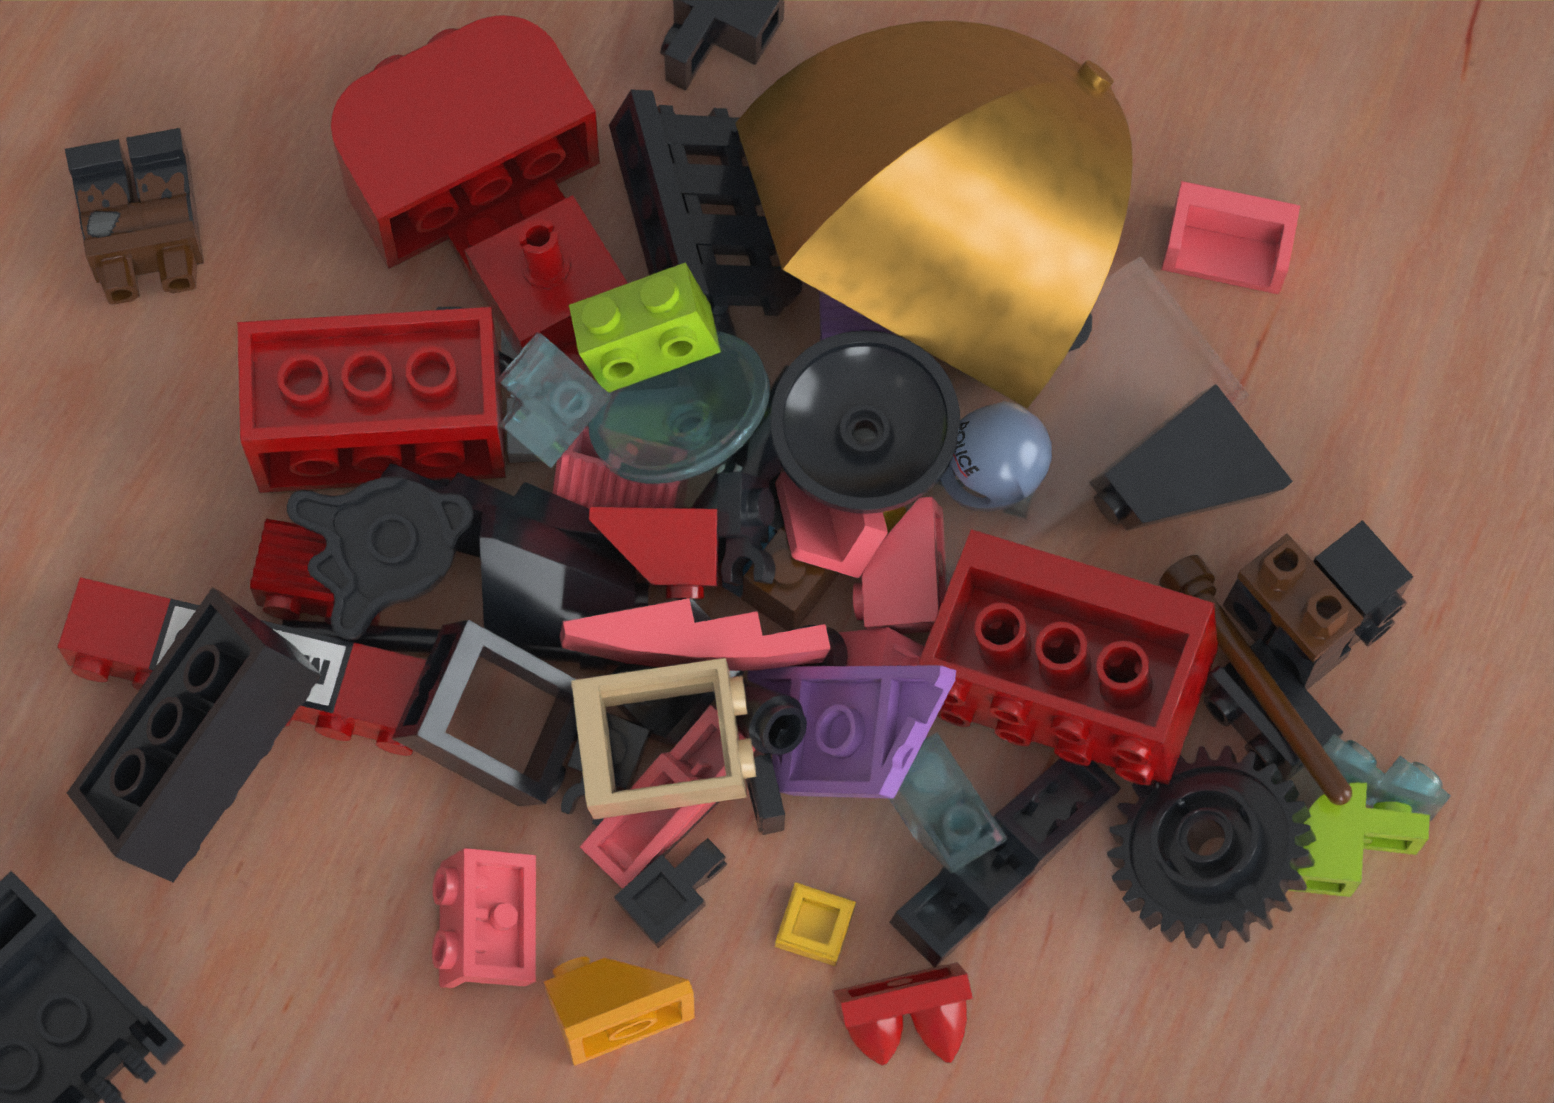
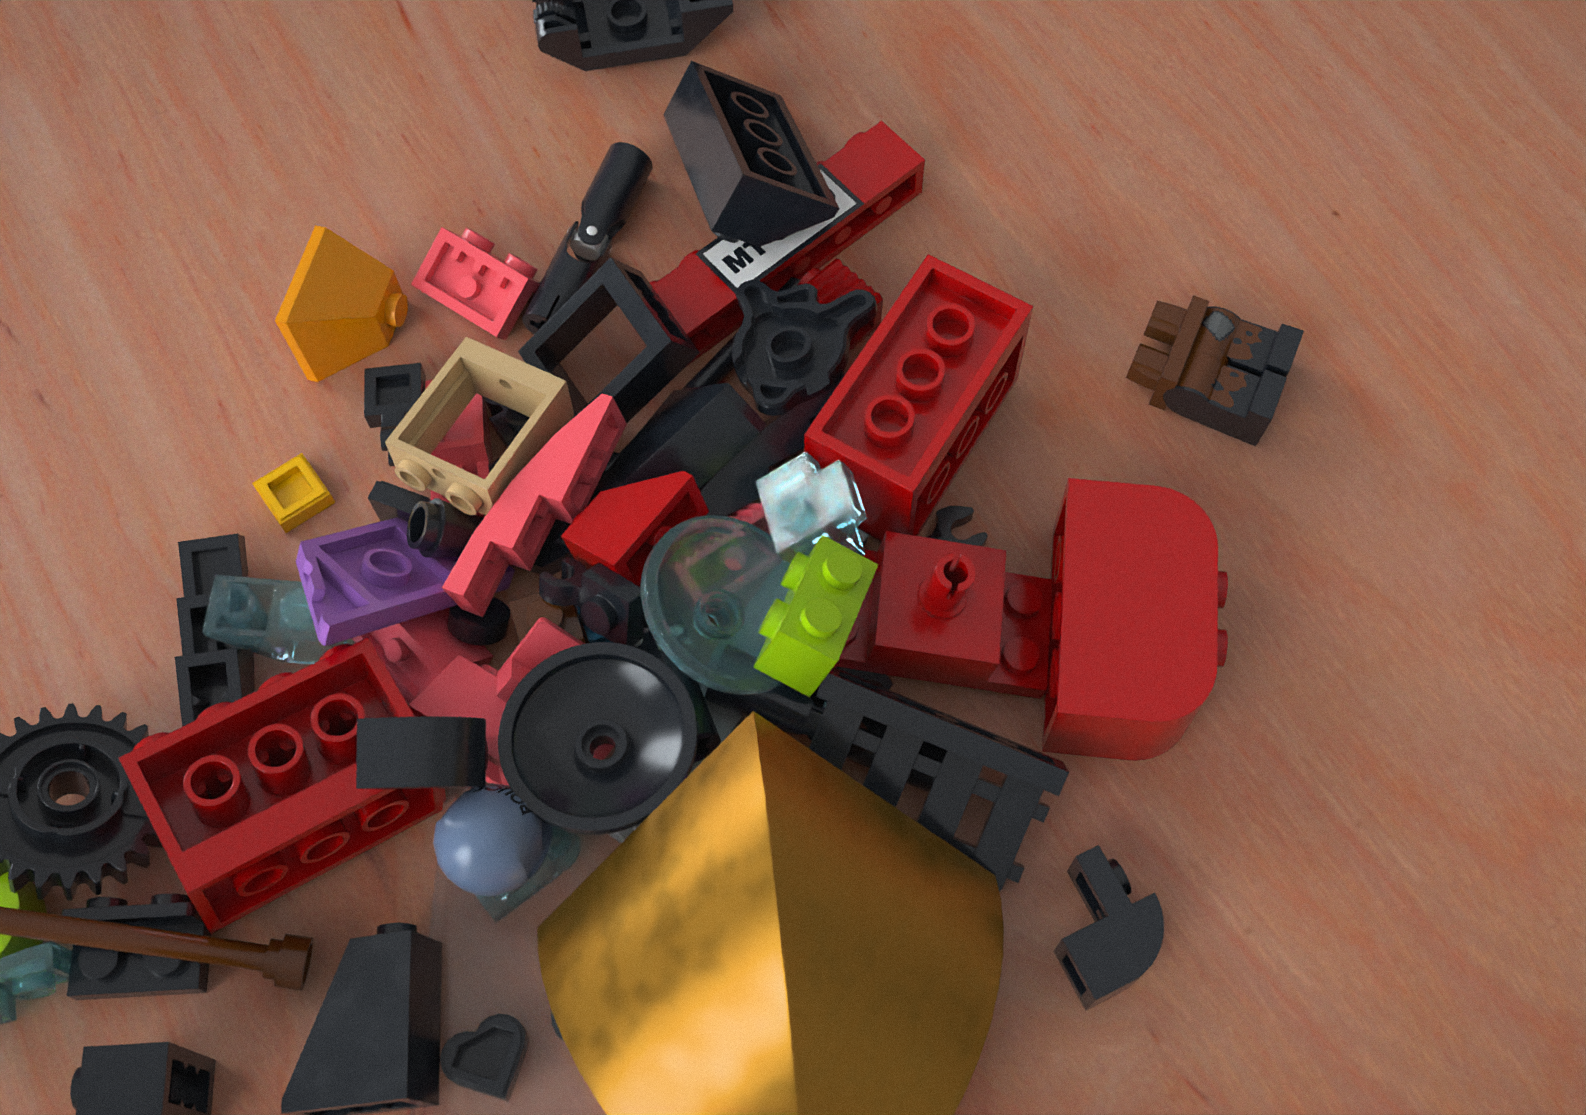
camera: 130 degrees right, 5 degrees down
(347, 854) = (603, 215): none -> black piece
(930, 996) = (182, 504): red tile -> none
(982, 514) = (421, 753): none -> black brick
(1139, 386) = (487, 1058): none -> black tile
(1297, 606) = (175, 1005): reddish brown hips -> none

